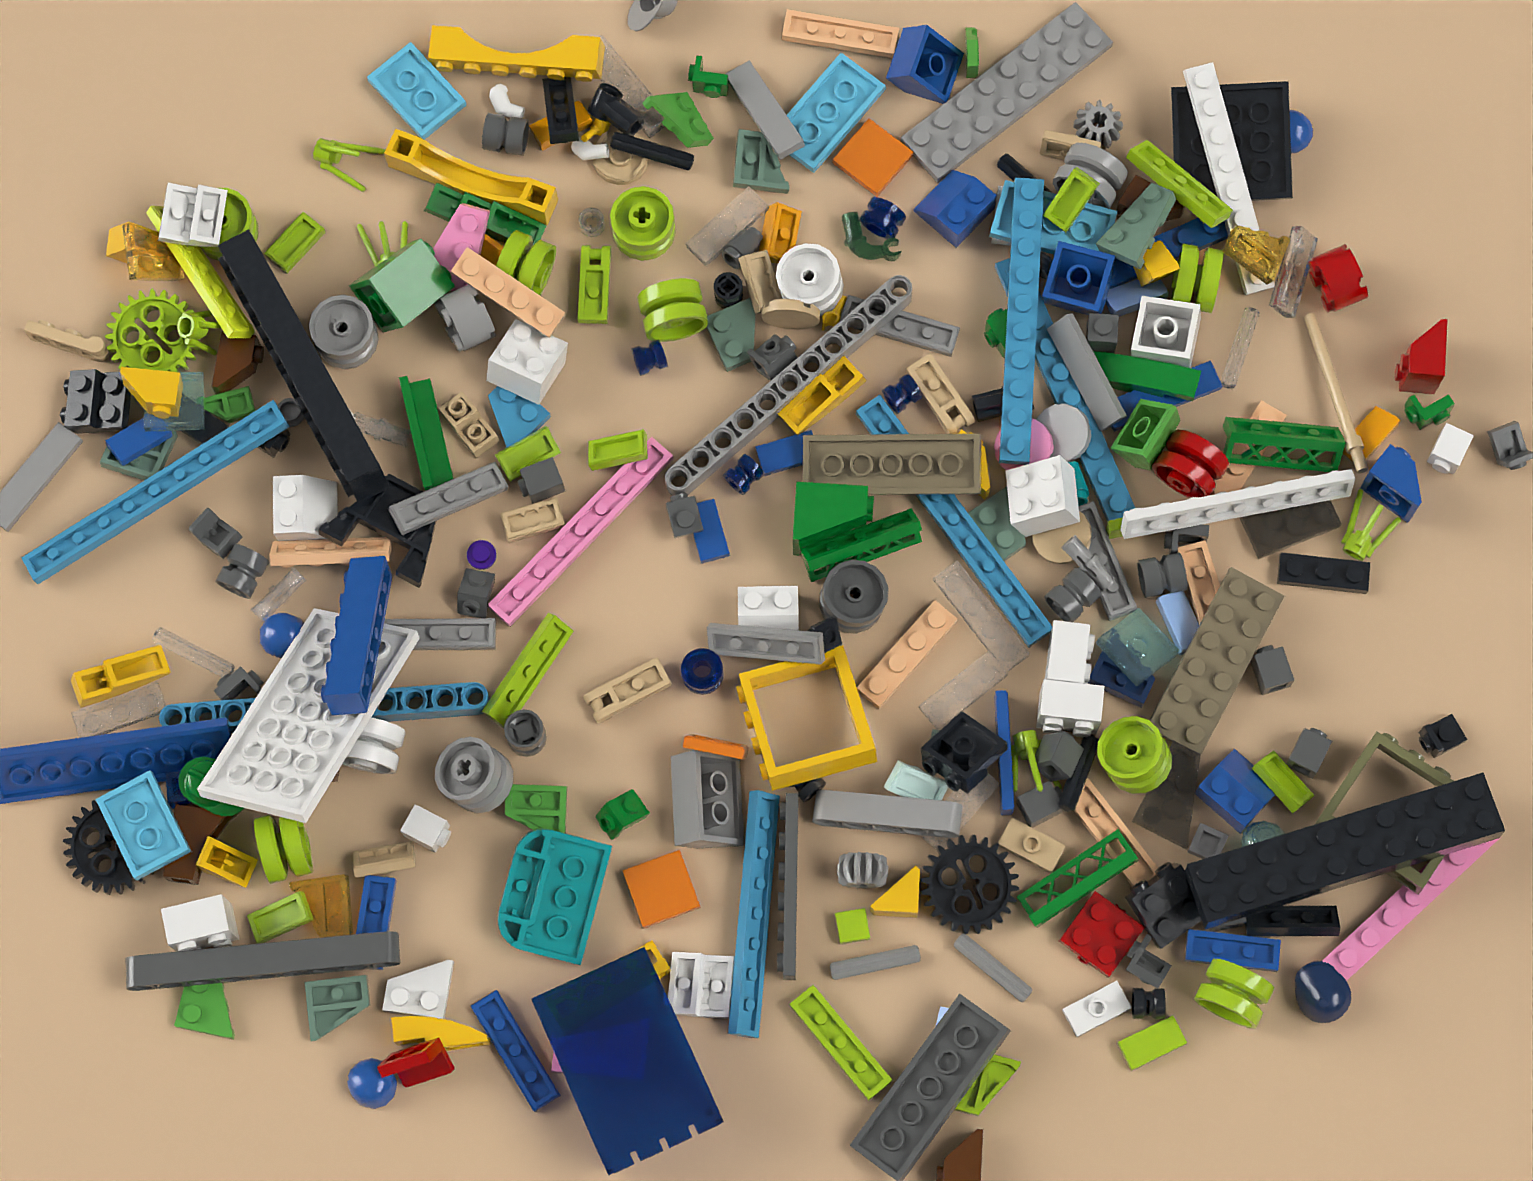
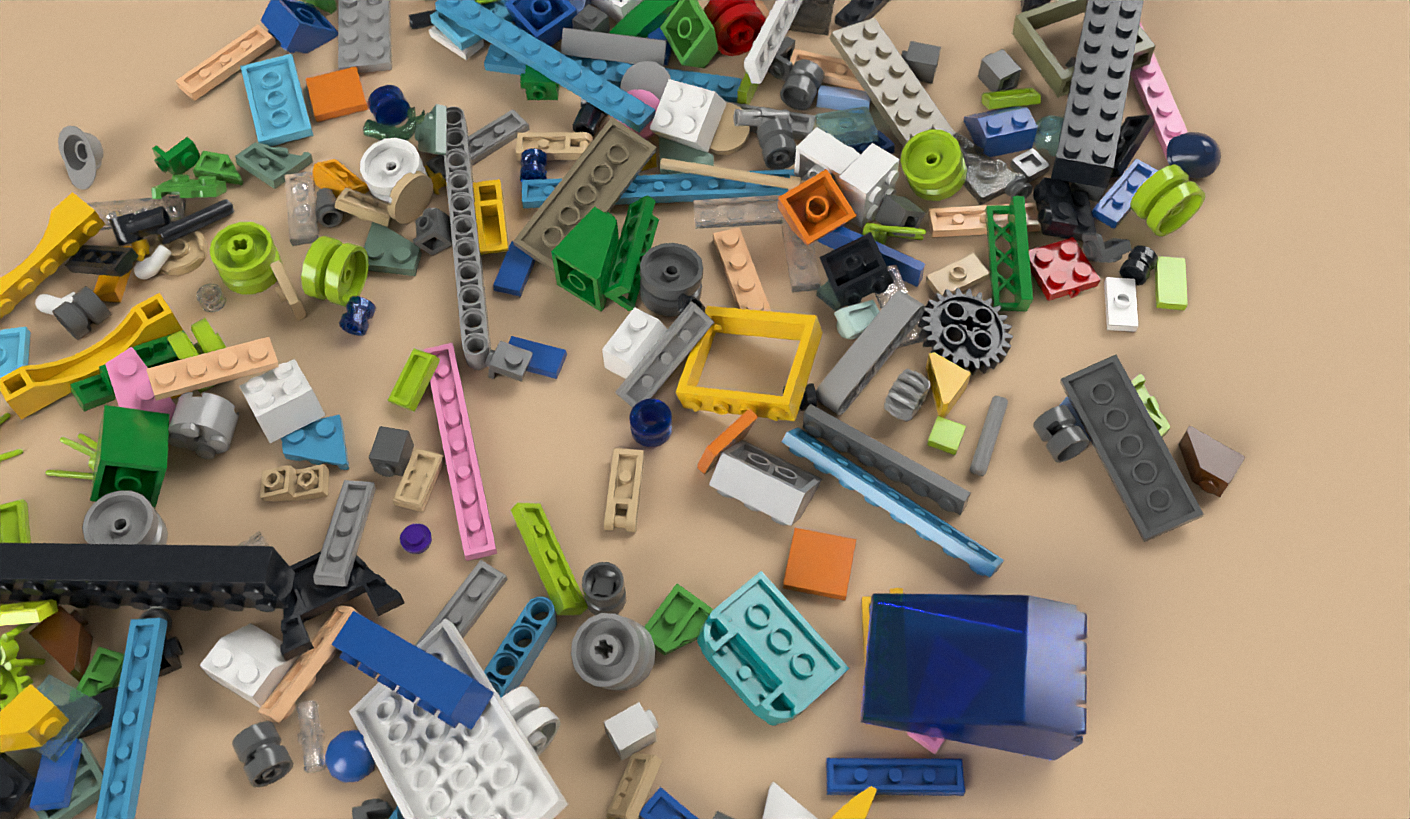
camera: 60 degrees left, 15 degrees down
(215, 533) = (207, 759): dark grey bracket -> none
(426, 432) = (271, 520): green fence -> none
(475, 593) = (446, 562): dark grey bracket -> none
(526, 452) = (356, 450): lime tile -> none
(594, 285) = (263, 322): lime plate -> none
(621, 813) = (731, 557): green bracket -> none
(636, 280) = (287, 291): none -> tan plate
(701, 985) = (929, 571): white slope -> none
(724, 119) = (218, 166): none -> bright green tile
(728, 296) = (352, 230): black wheel -> none
(743, 474) = (509, 303): clear blue wheel -> none
(765, 110) = (239, 132): light grey tile -> none
(840, 1042) = (1046, 497): lime plate -> none
(871, 281) = (432, 131): none -> sand green wing
(909, 1023) = (1061, 434): none -> dark grey wheel
(956, 206) = (420, 61): blue slope -> none
(993, 967) = (1044, 355): light grey axle -> none
(1002, 679) = (815, 208): none -> orange slope
(1029, 639) = (731, 174): none -> tan bar
(1040, 806) = (931, 249): dark grey brick -> none
(1075, 784) = (933, 216): black axle -> none
(1169, 848) = (1019, 187): none -> dark grey bush

